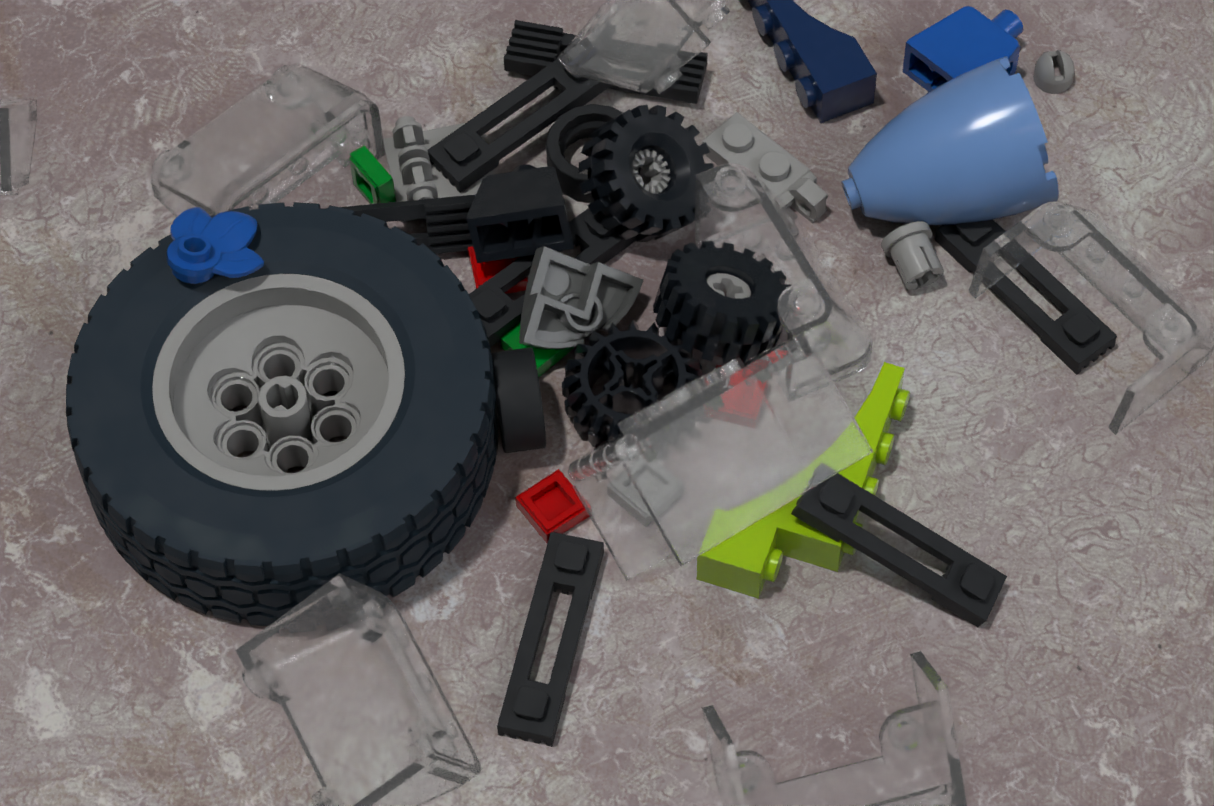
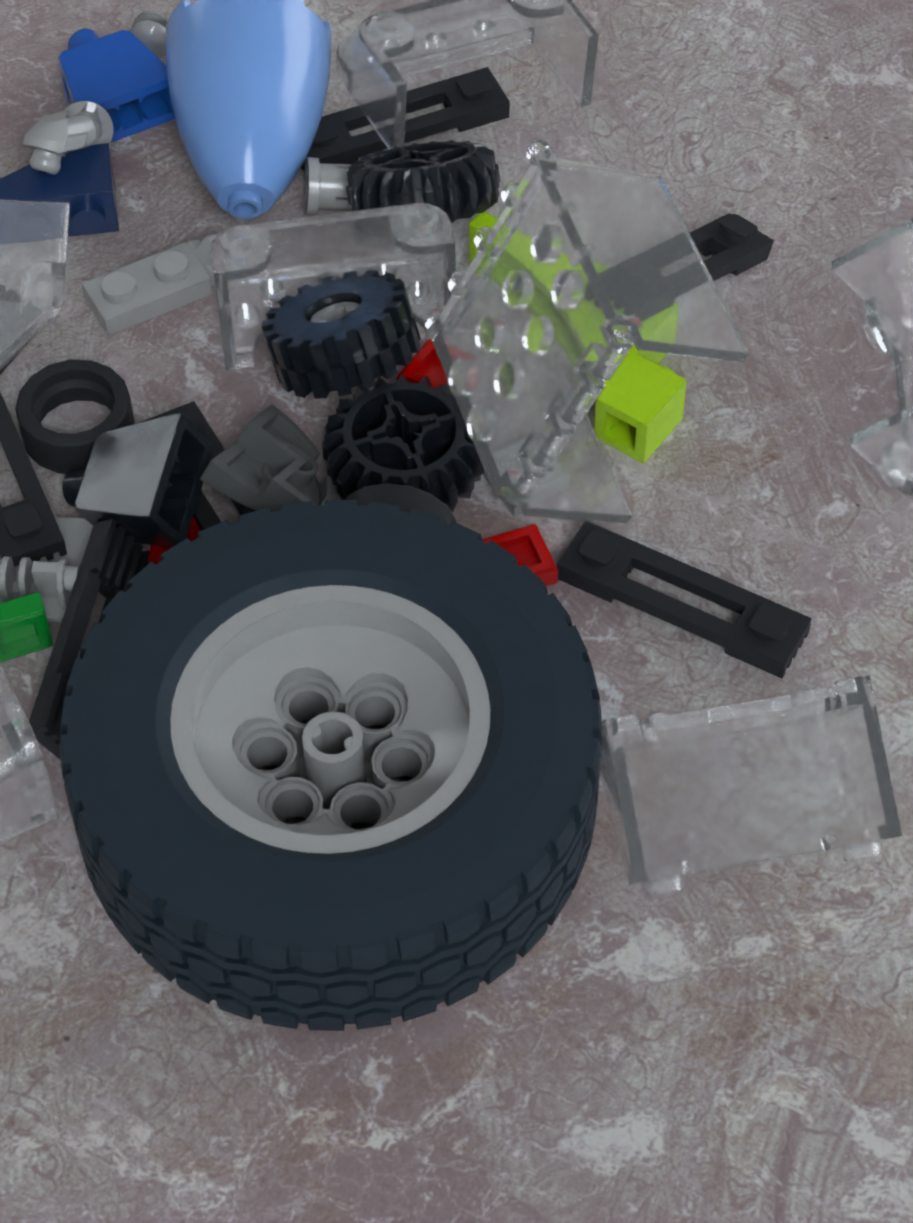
camera: 75 degrees left, 5 degrees down
(212, 245) = (119, 733): blue plate -> none
(667, 157) = (148, 355): black bush -> none
(886, 49) = (67, 131): none -> light grey arm
(917, 315) = (446, 174): none -> black gear

